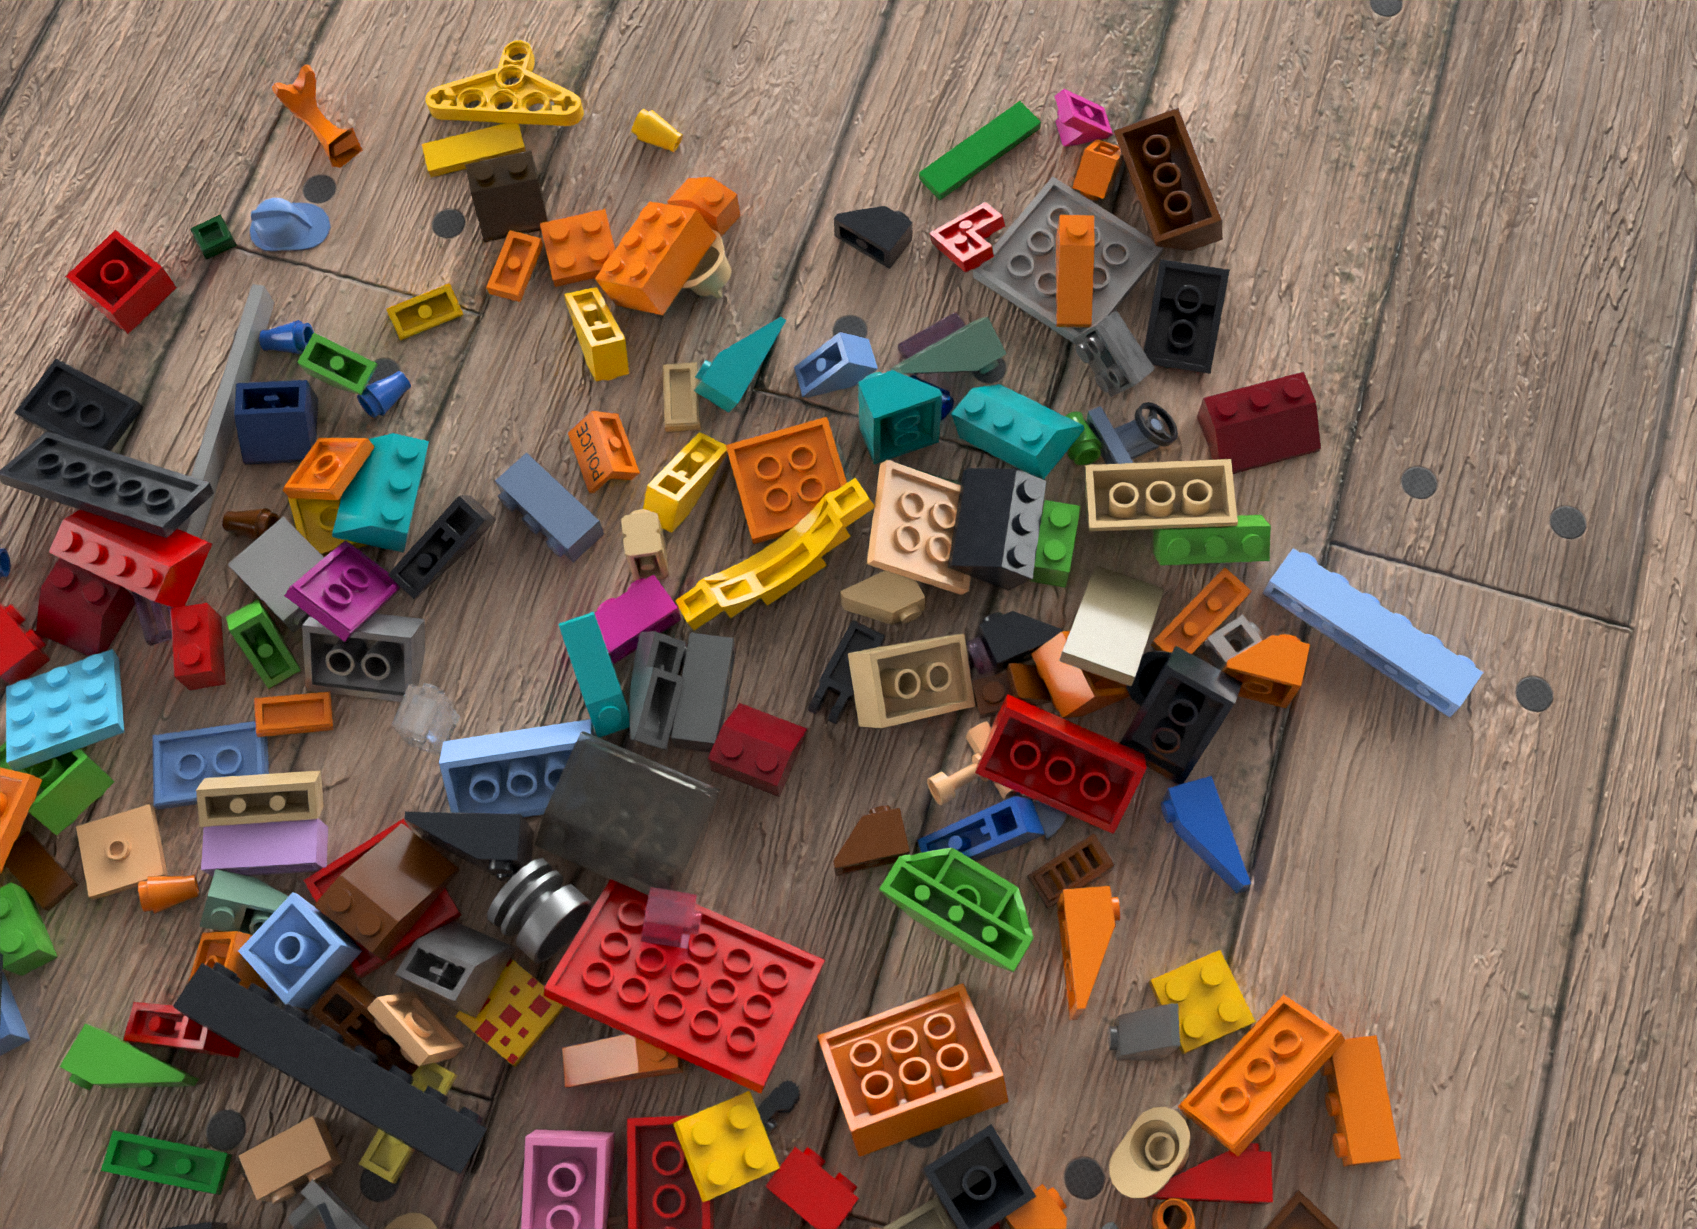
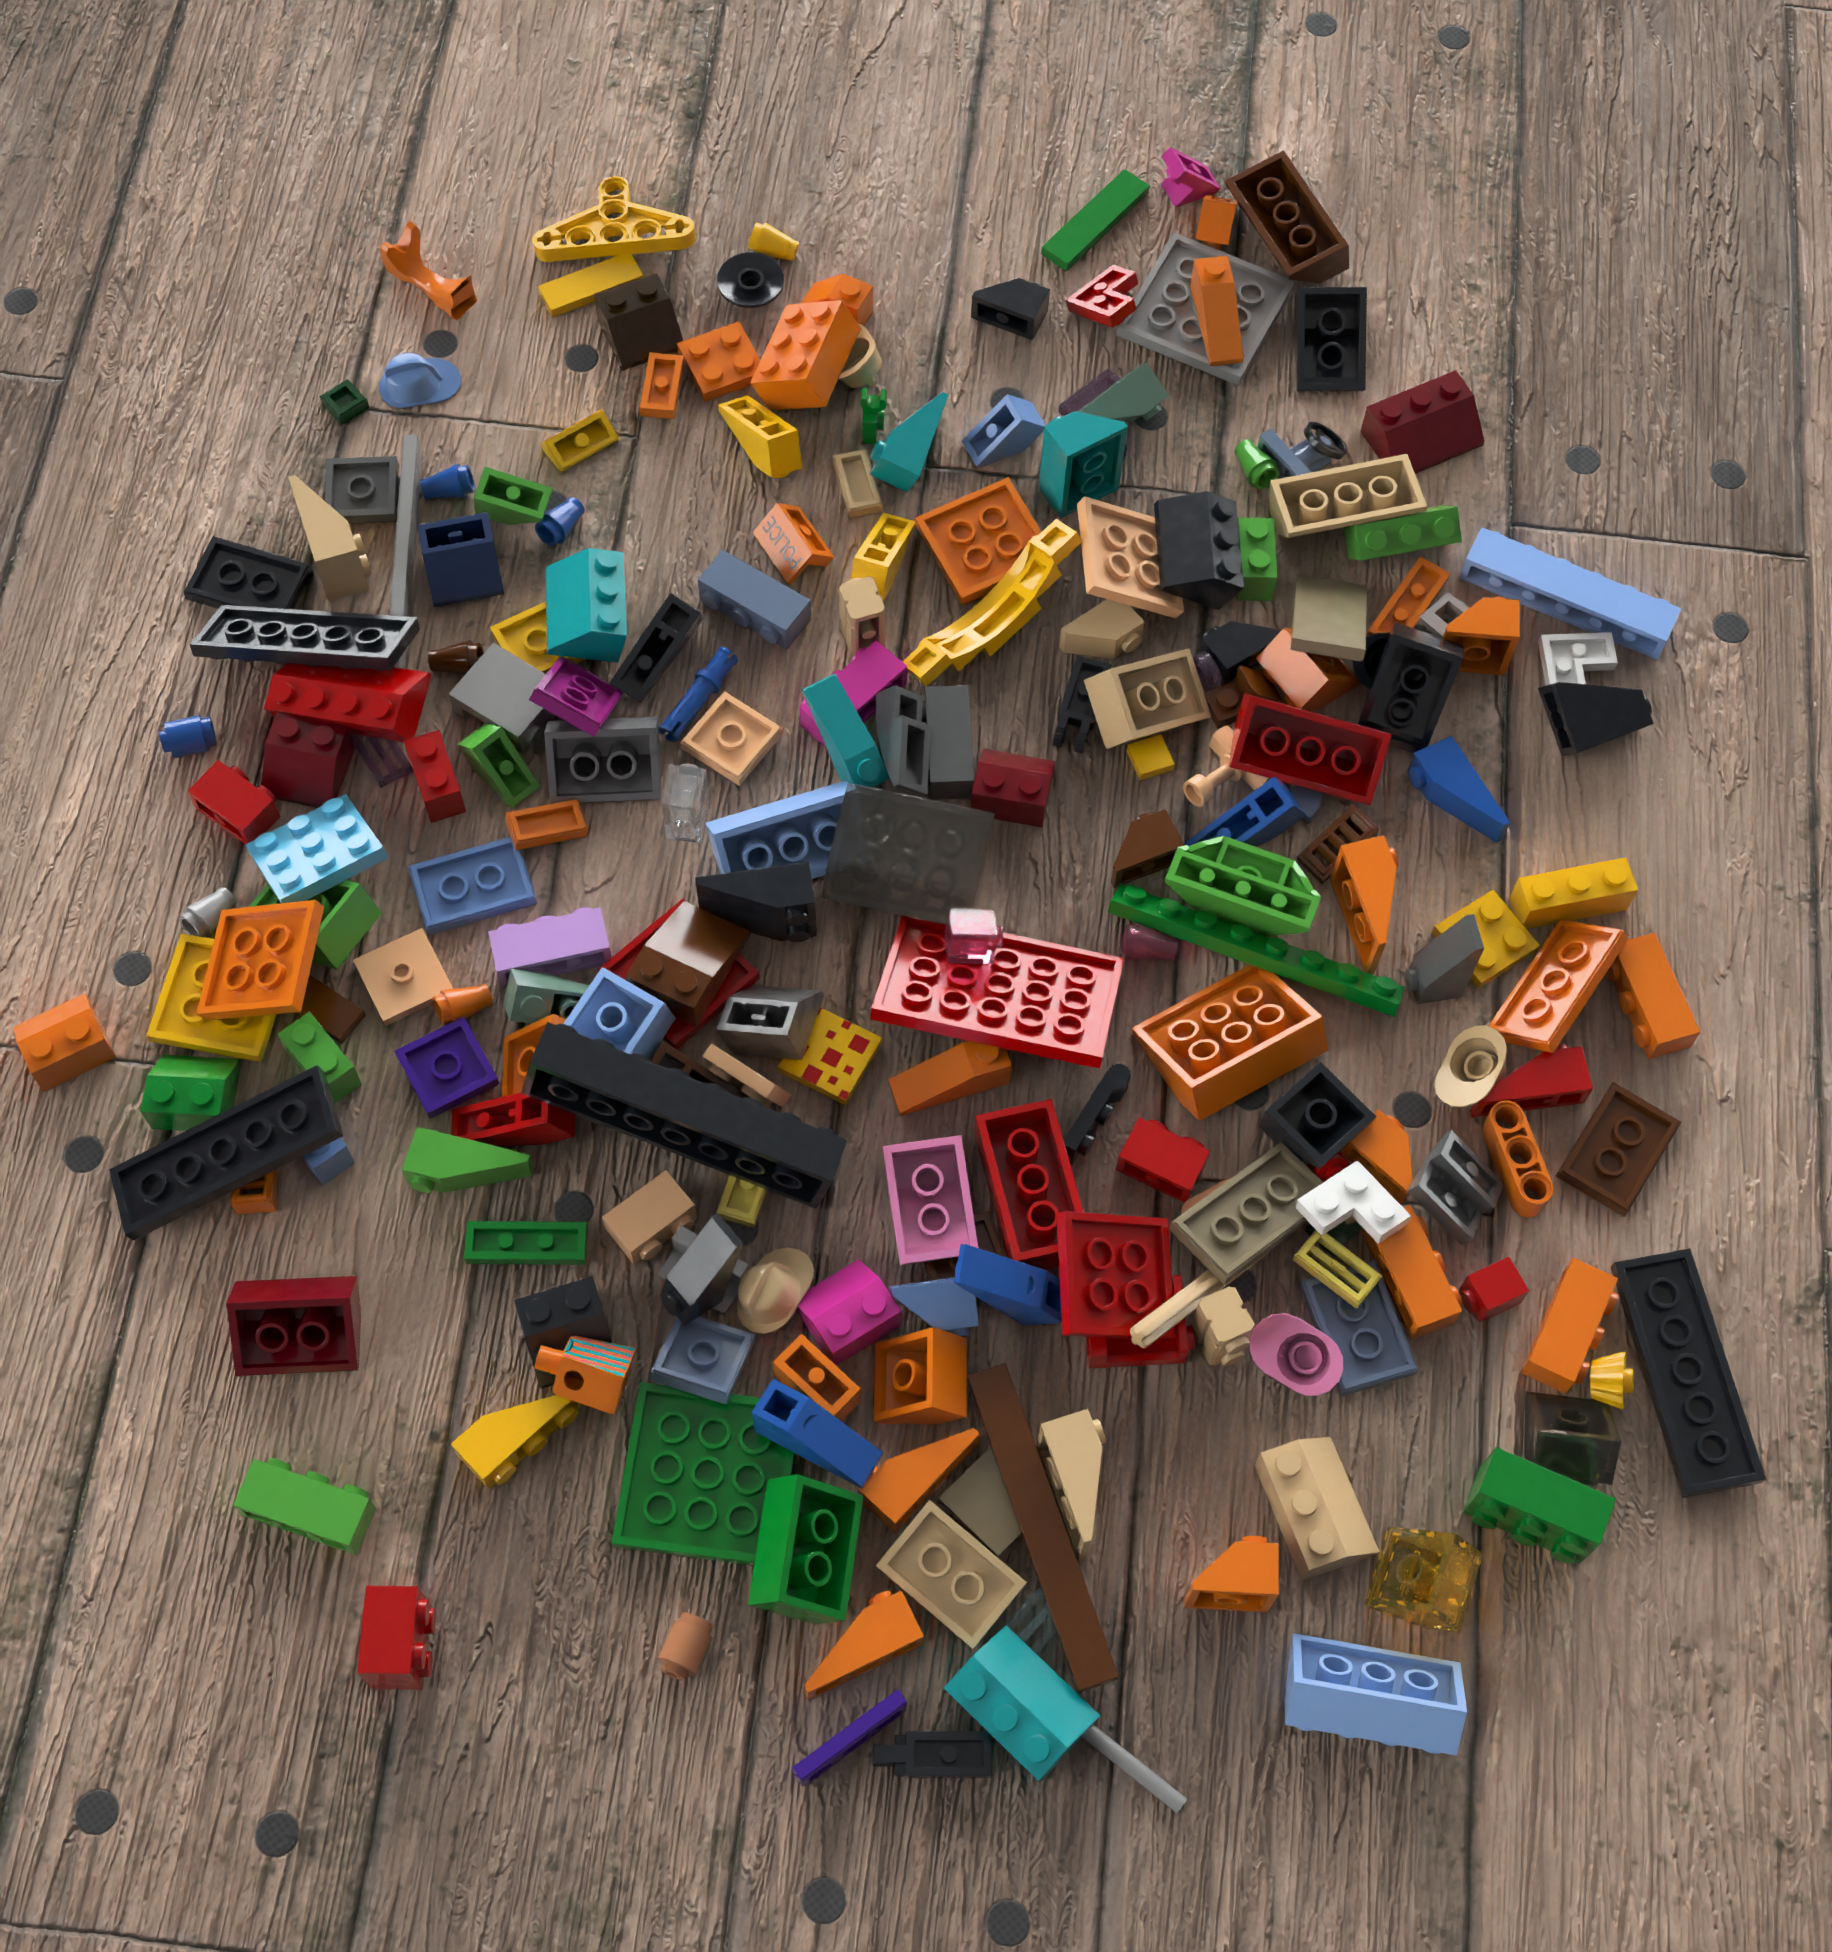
camera: 15 degrees left, 5 degrees down
(121, 281) = (265, 451): red brick -> none
(136, 958) = (446, 1067): none -> dark purple plate
(149, 390) = (335, 550): none -> tan slope
(202, 332) = (363, 488): none -> dark grey plate
(260, 798) = (540, 898): tan brick -> none
(328, 468) = (528, 591): orange tile -> none
(472, 599) = (706, 683): none -> blue pin
(494, 652) = (731, 738): none -> light nougat plate
(539, 910) = (839, 951): flat silver wheel -> none
(621, 157) = (749, 270): none -> black dish
(708, 331) = (873, 414): none -> green plate
(726, 1146) = (1076, 1121): yellow plate -> none
(852, 948) = (1146, 944): none -> clear pink cone
(903, 741) = (1150, 757): none -> yellow tile
(962, 975) = (1256, 949): none -> green plate
(1015, 428) = (1191, 462): teal slope -> none
(1113, 354) = (1270, 381): flat silver slope -> none
(1302, 971) = (1573, 893): none -> yellow brick
(1352, 703) = (1569, 655): none -> white plate
(1366, 776) = (1593, 714): none -> black slope

